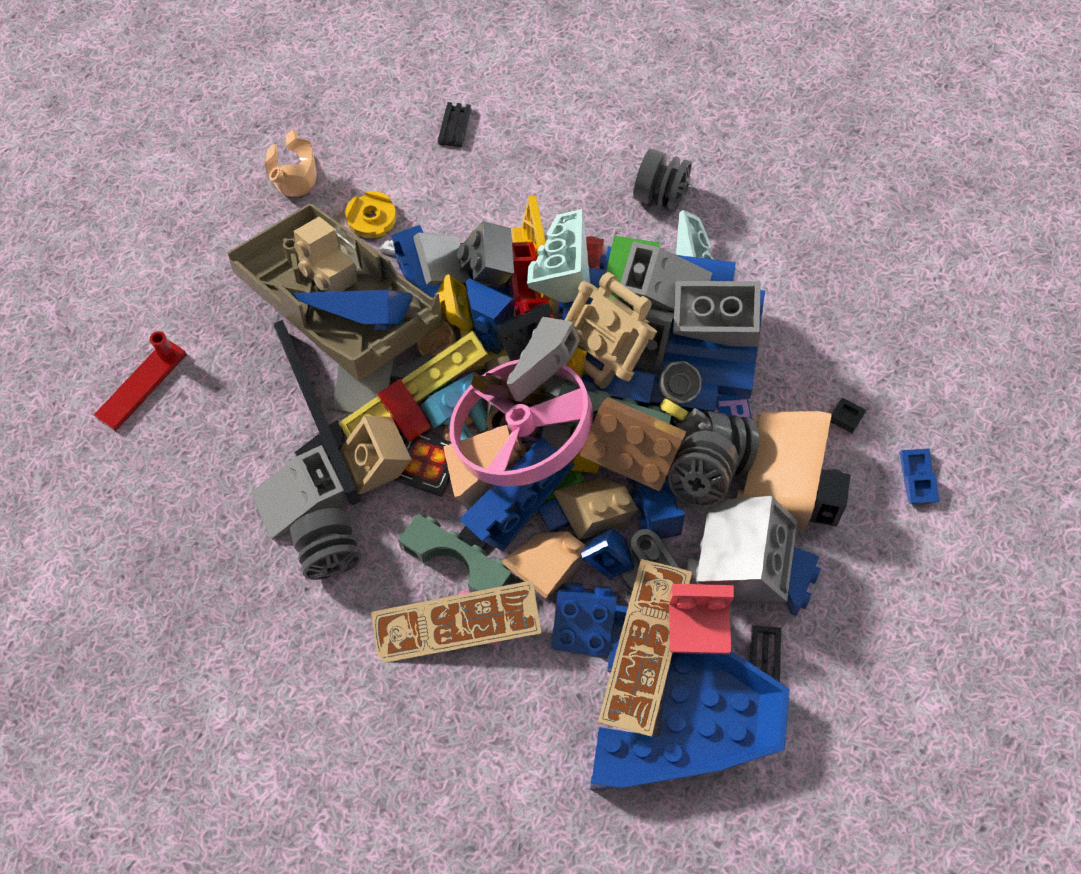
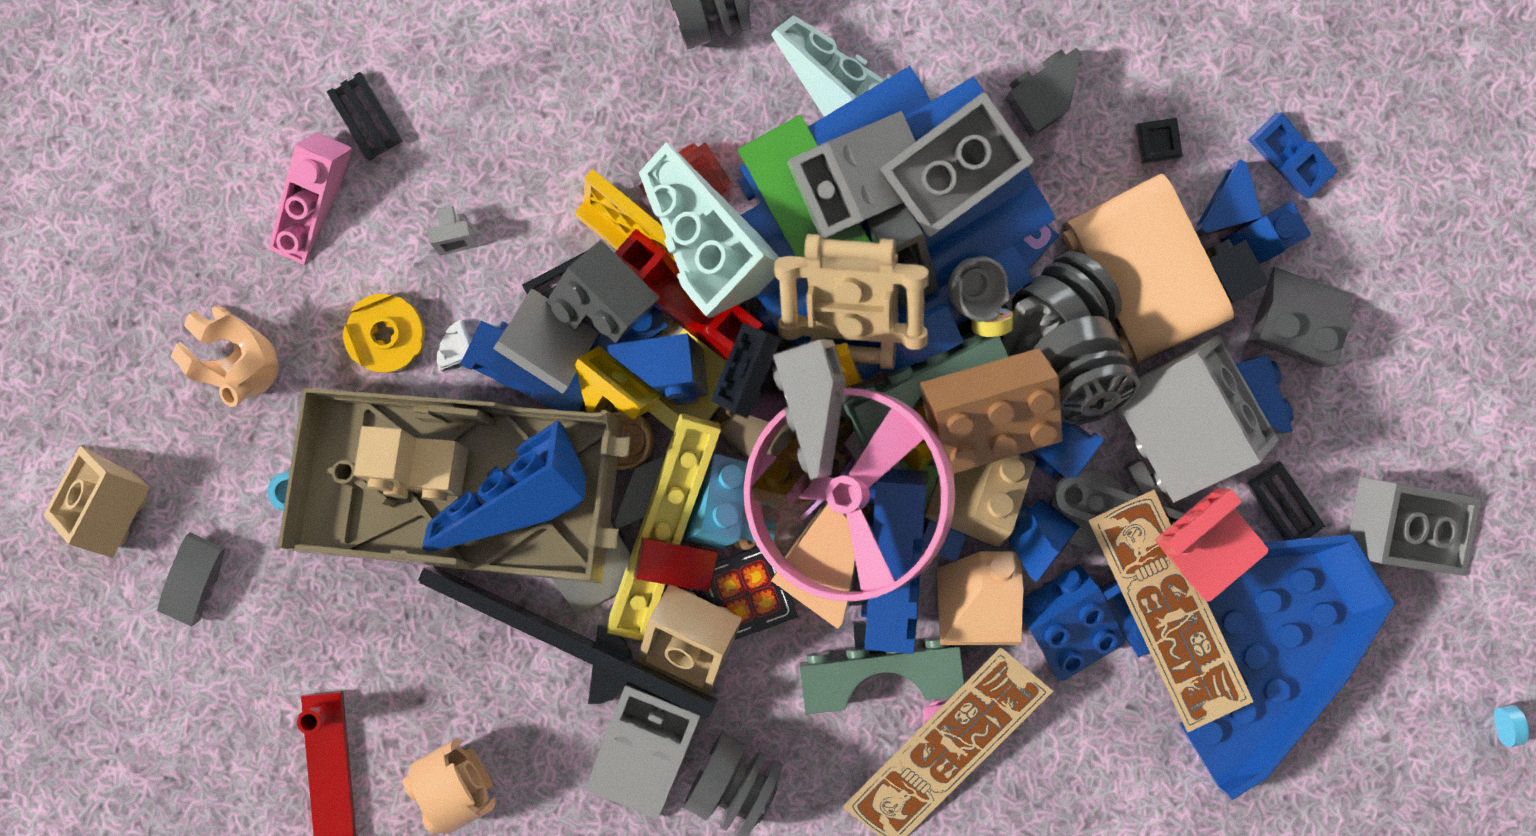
camera: 45 degrees left, 25 degrees up
(169, 187) = (96, 503): none -> tan slope
(179, 244) = (189, 577): none -> dark grey slope
(188, 429) = (449, 787): none -> light nougat brick
(401, 131) = (309, 191): none -> bright pink slope
(444, 195) = (451, 233): none -> light grey tile
(802, 346) = (1046, 95): none -> dark grey slope
(835, 726) = (1414, 526): none -> light grey slope
(854, 560) = (1302, 319): none -> dark grey slope
(862, 469) = (1232, 202): none -> blue slope
(871, 506) = (1272, 232): none -> blue slope

